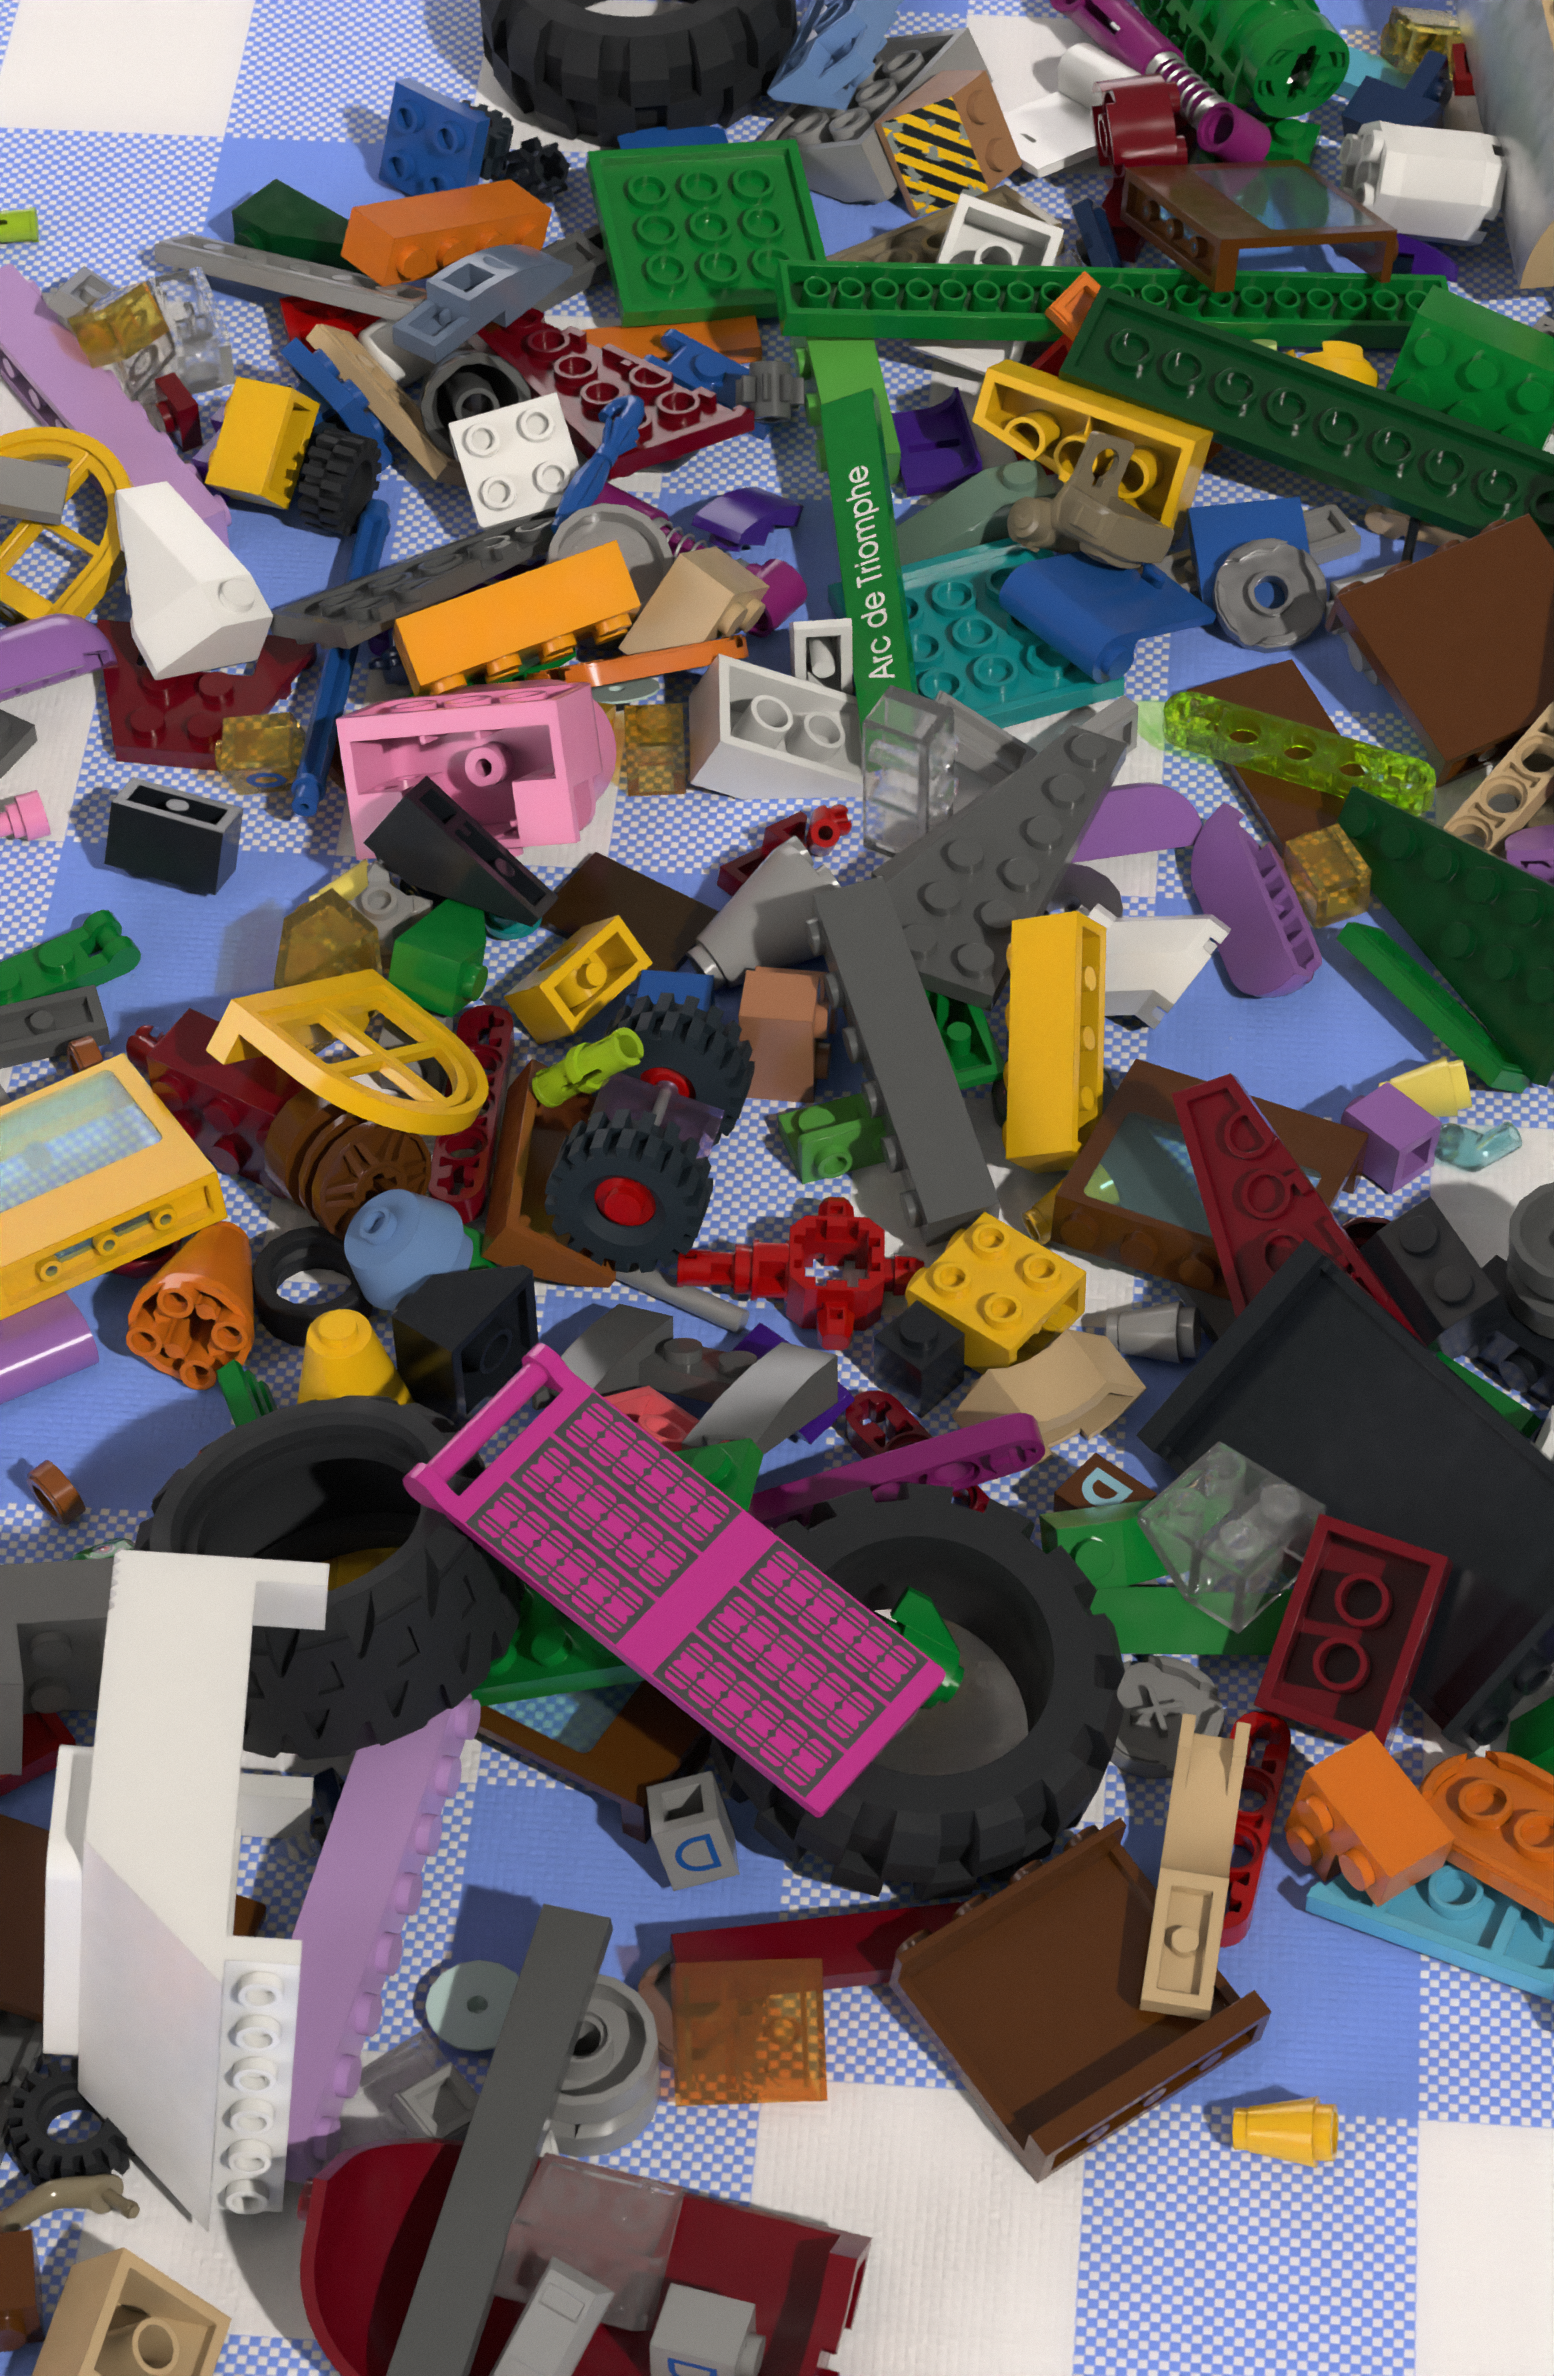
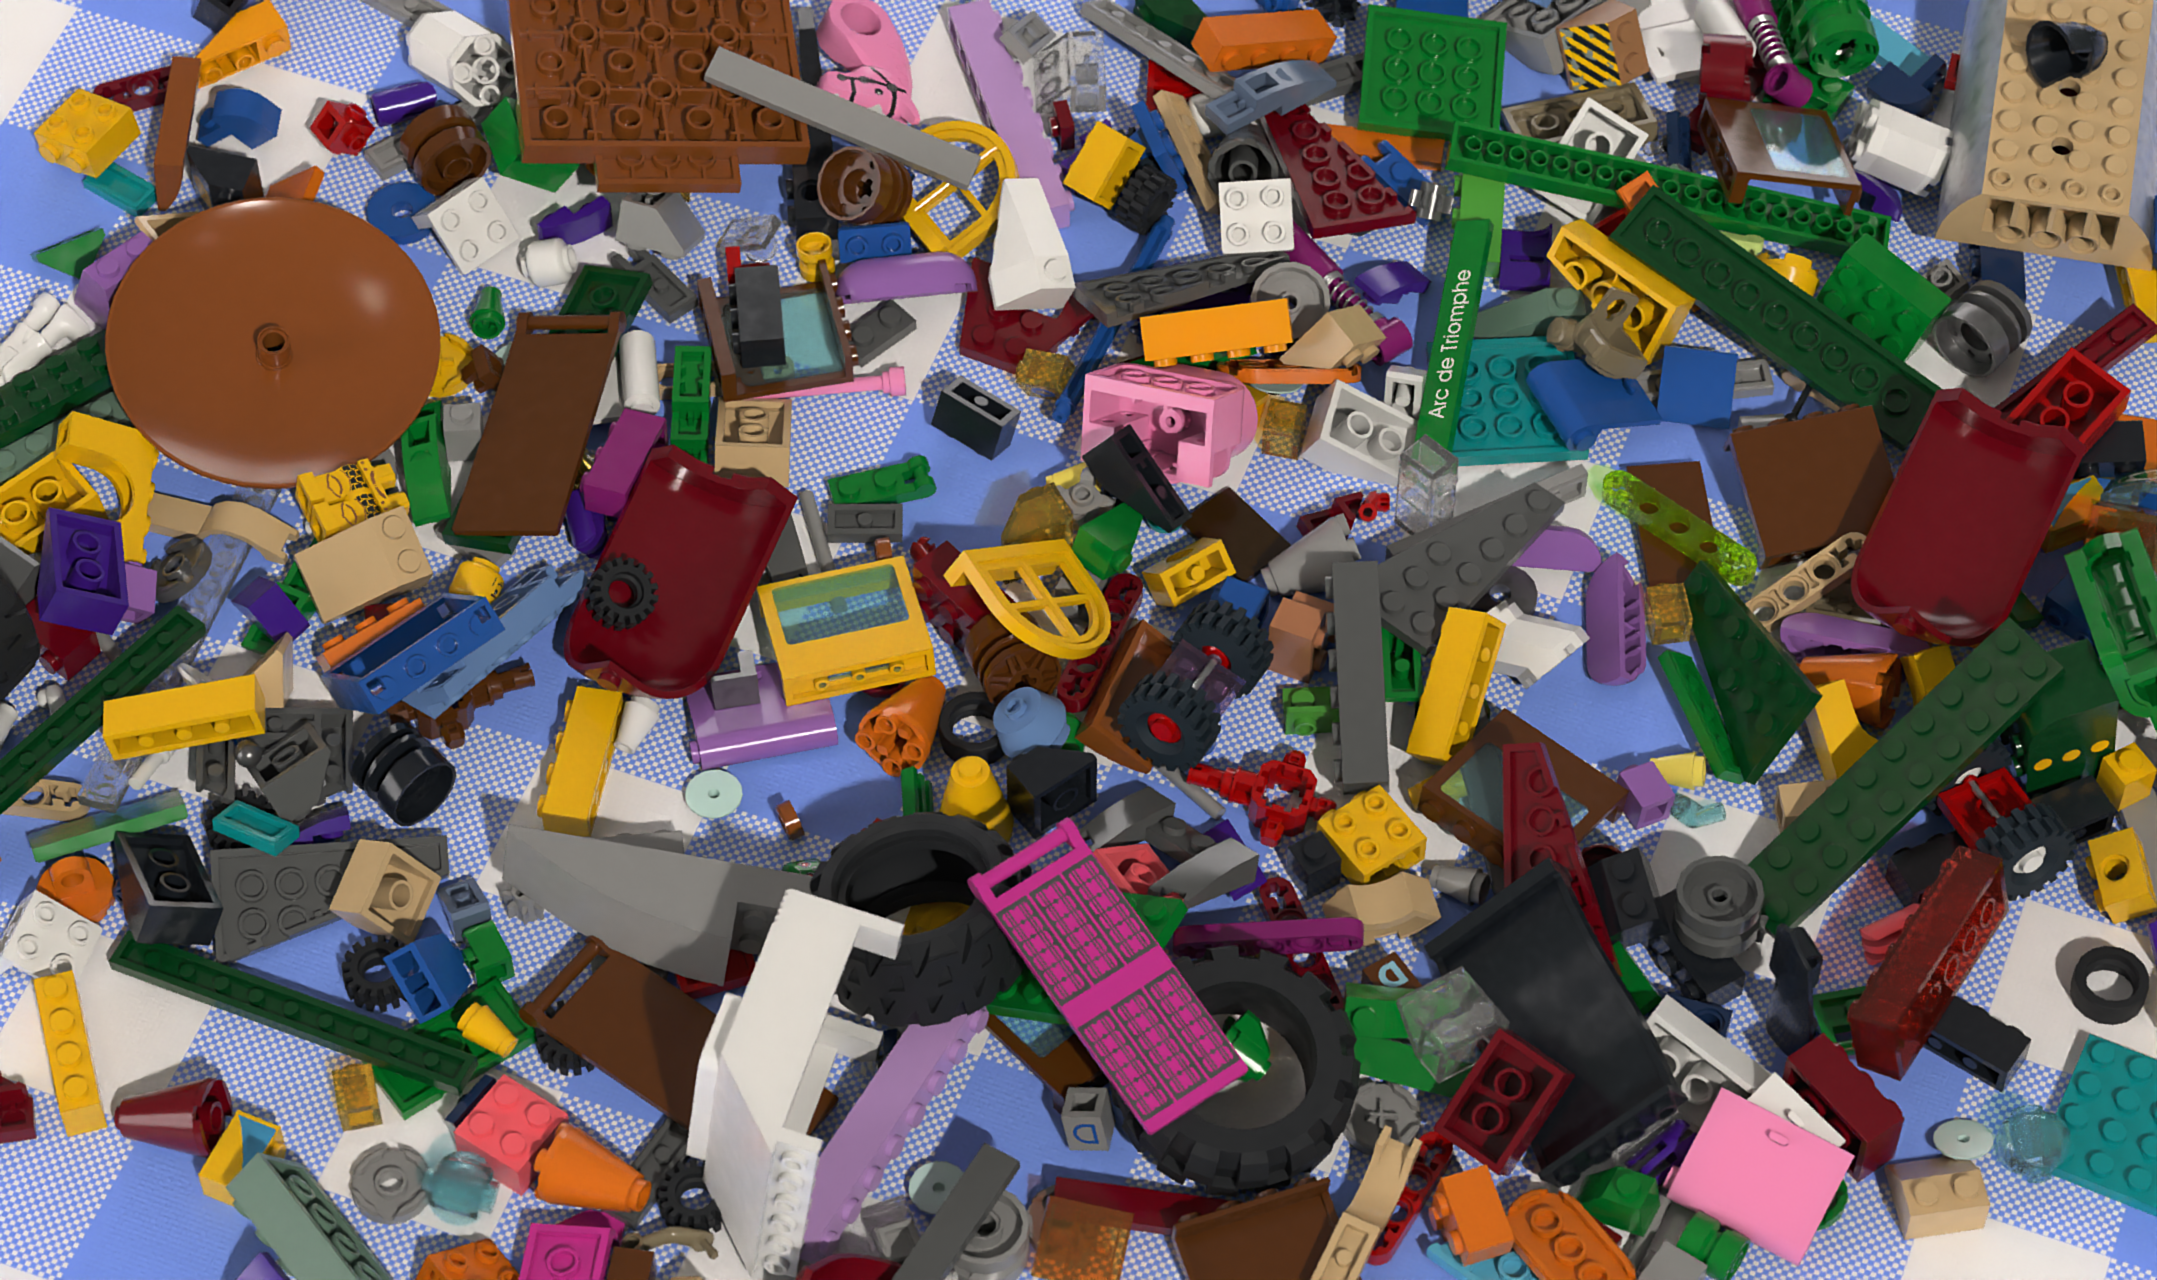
camera: 15 degrees right, 5 degrees up
(118, 324) = (1038, 62): clear yellow brick -> none
(587, 1067) = (1169, 636): lime pin -> none
(616, 439) = (1322, 215): blue piece -> none
(984, 745) = (1482, 471): light grey tile -> none
(1262, 627) = (1699, 437): flat silver tile -> none
(1416, 31) = (1937, 37): clear yellow brick -> none

